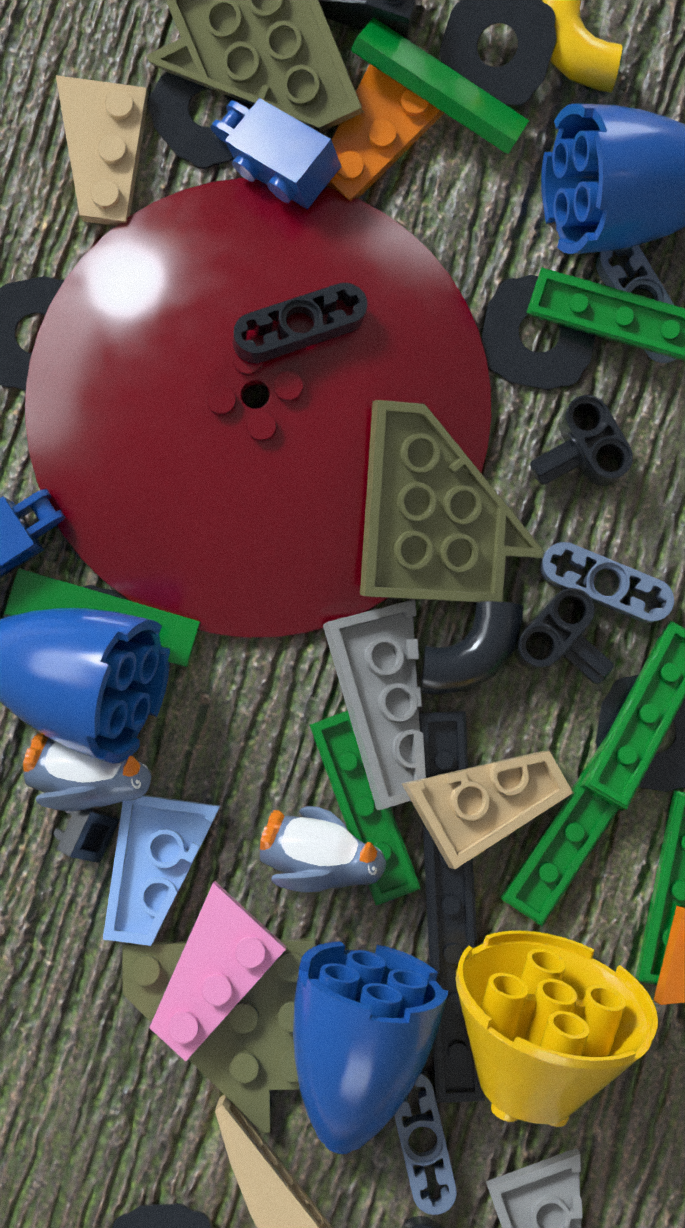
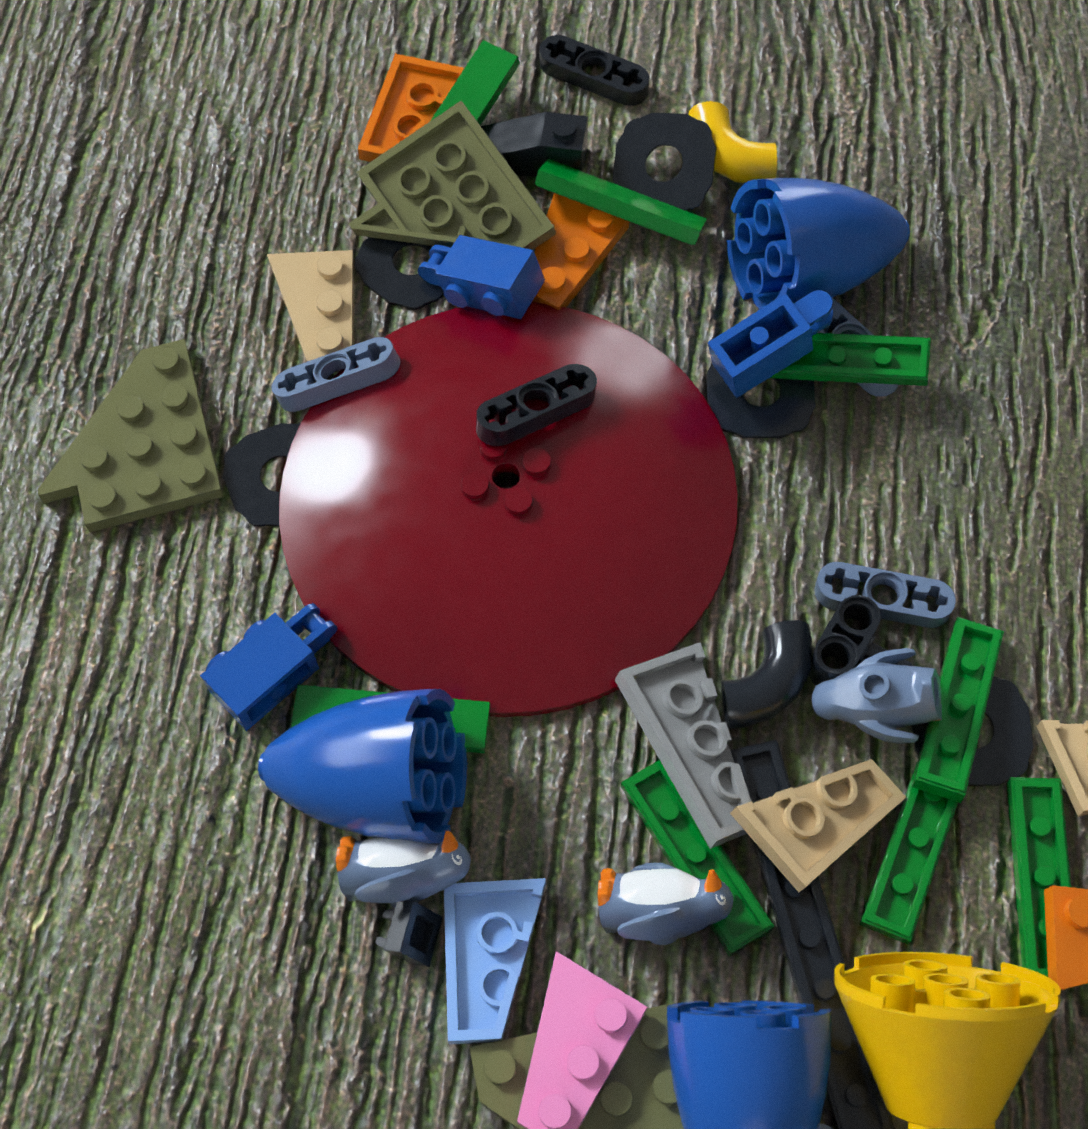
camera: 10 degrees left, 20 degrees down
(84, 229) = (296, 385): none -> sand blue beam
(432, 515) = (699, 557): olive wing -> none
(557, 293) = (769, 340): none -> blue brick
(574, 697) = (882, 696): none -> sand blue animal
(582, 446) = (830, 473): black beam -> none

